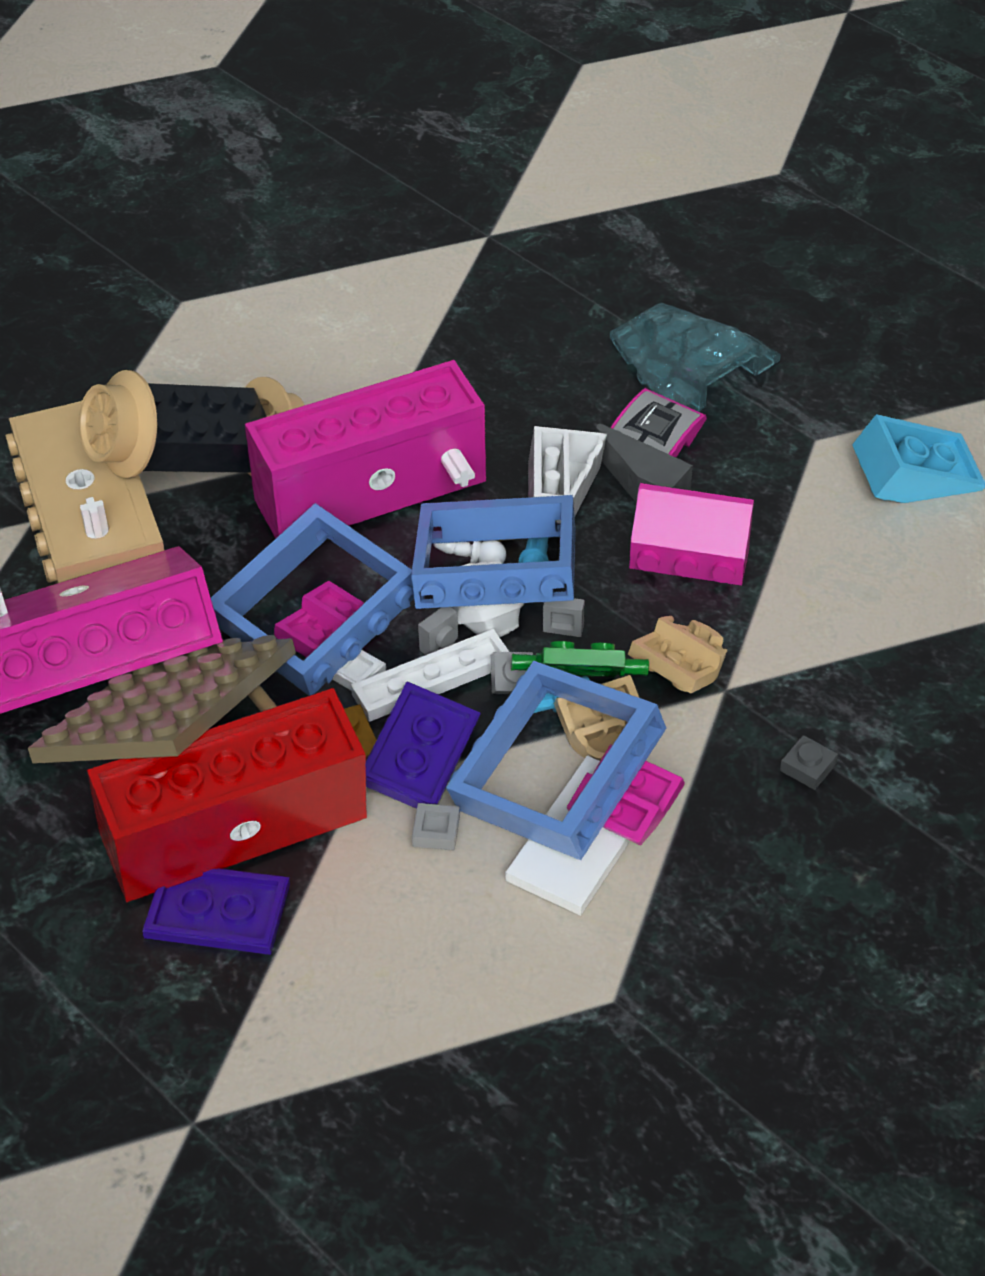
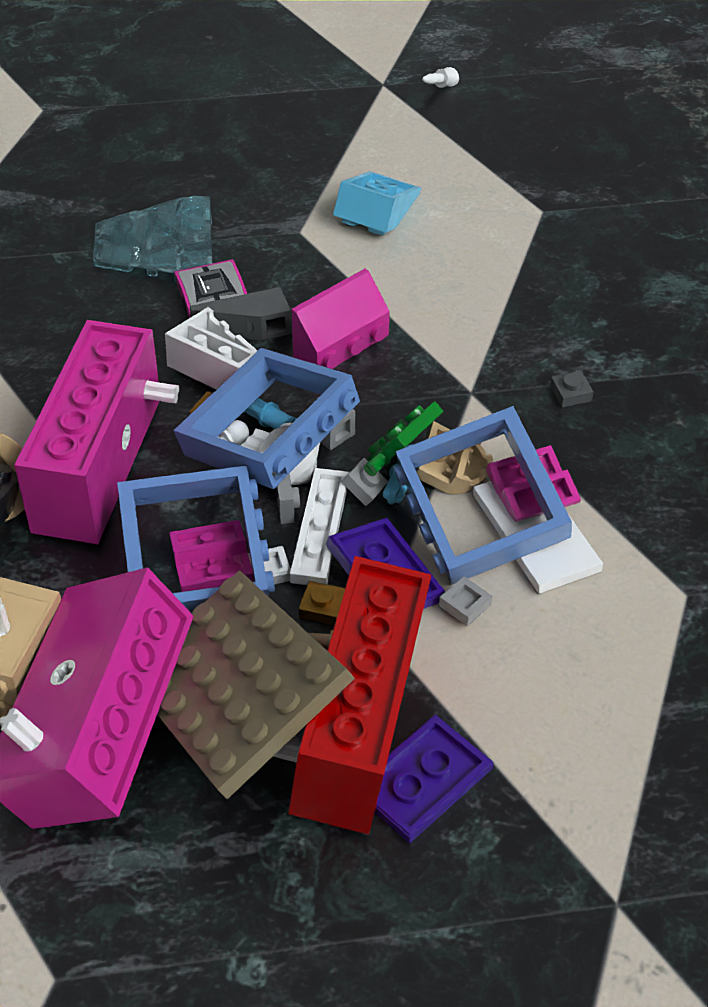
camera: 55 degrees left, 0 degrees up
(682, 653) = (426, 384): tan slope -> none

